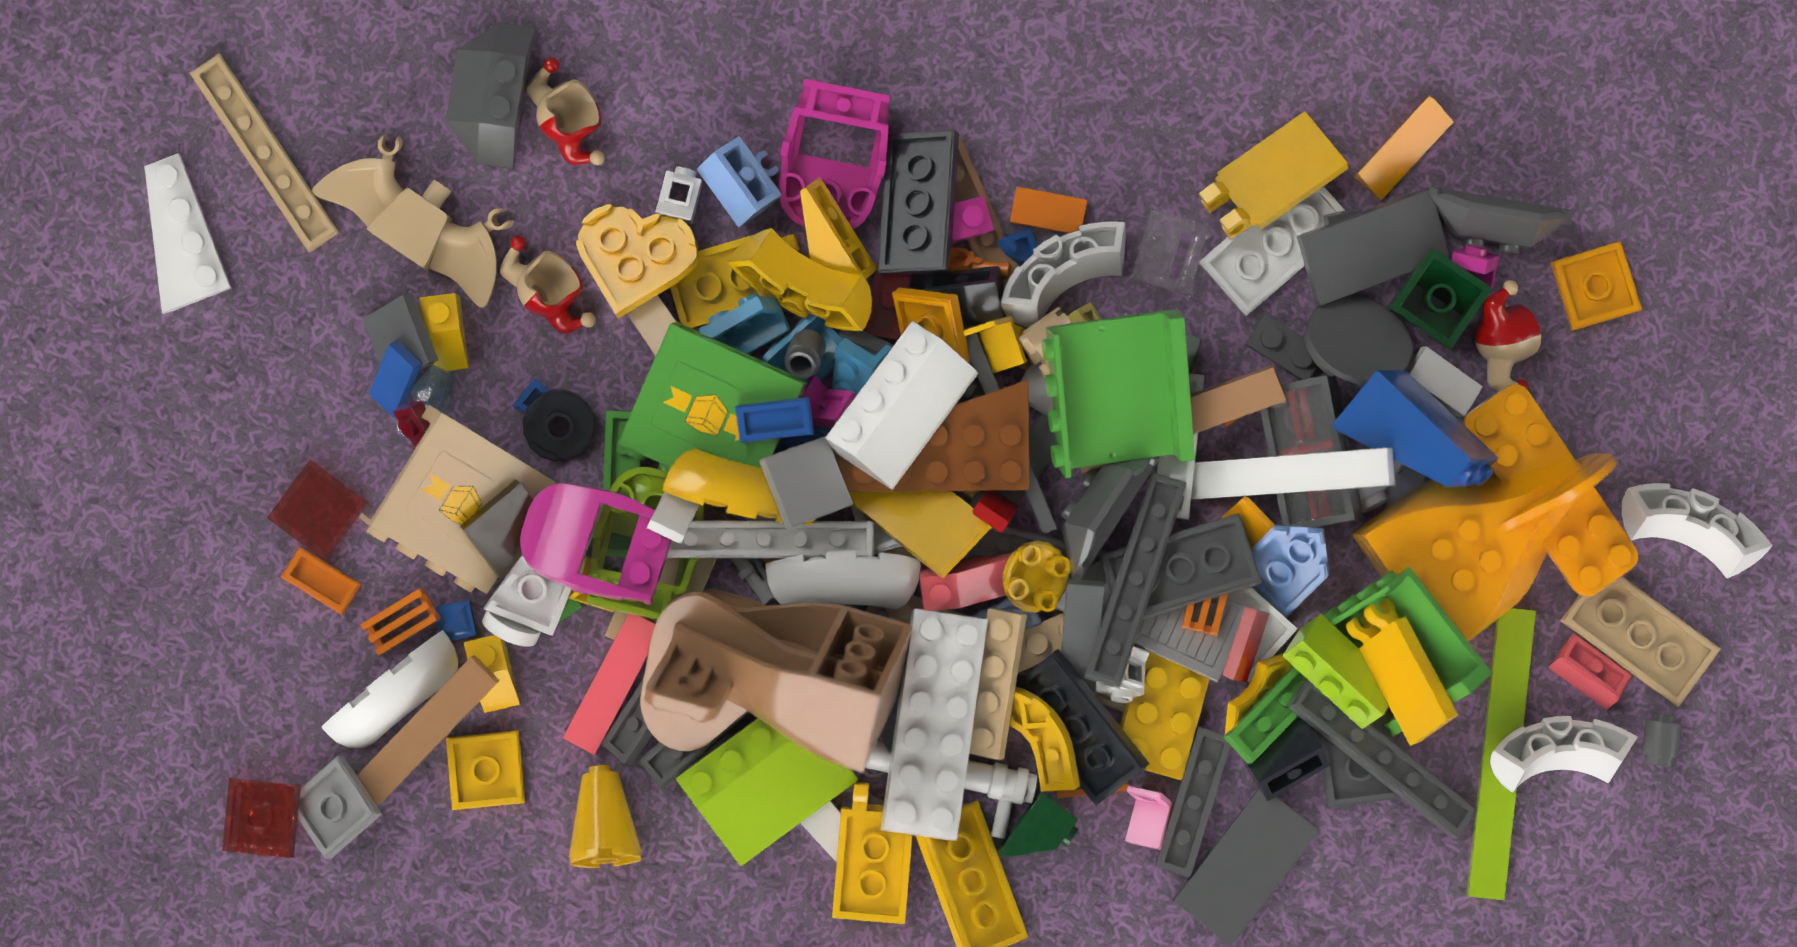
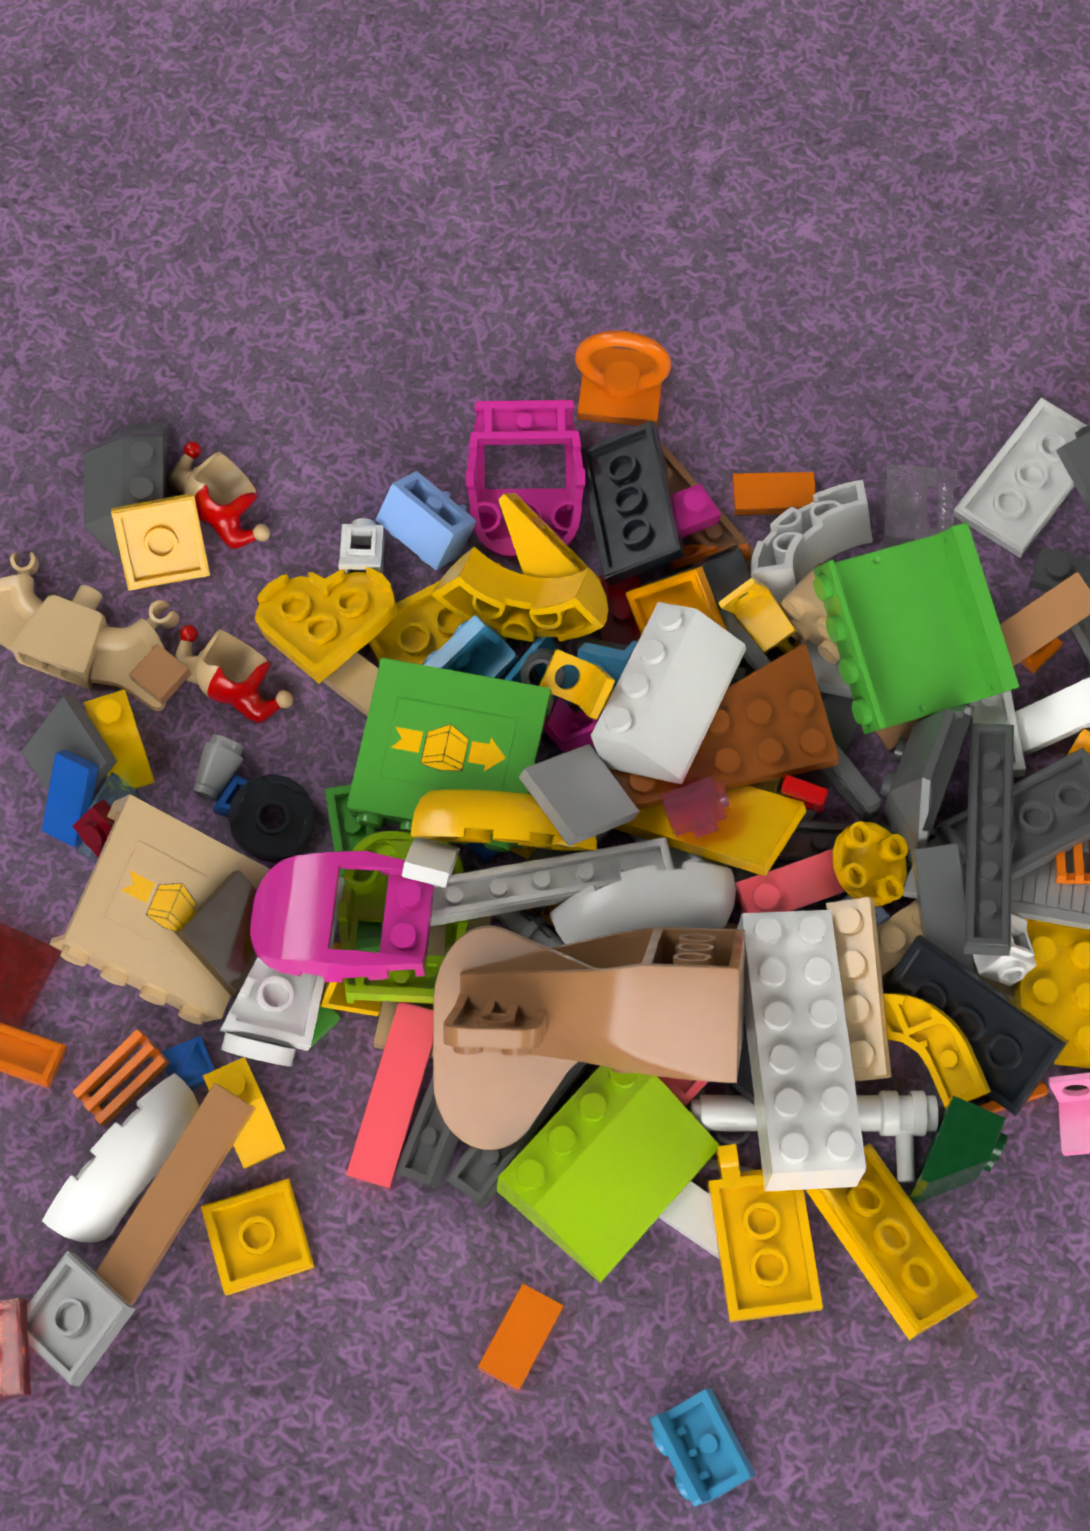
camera: 10 degrees left, 20 degrees down
(487, 280) = (160, 674): none -> medium nougat tile
(508, 154) = (160, 541): none -> yellow tile
(521, 369) = (217, 765): none -> light grey cone
(603, 822) = (418, 1267): yellow cone -> none
(672, 891) = (520, 1337): none -> orange tile
(774, 419) = (526, 733): blue tile -> none
(837, 385) = (591, 689): none -> yellow bracket
(899, 509) = (695, 806): none -> clear pink brick
(940, 75) = (620, 382): none -> orange tile
(1018, 245) = (750, 529): blue tile -> none
(1274, 176) = (1009, 410): yellow tile -> none

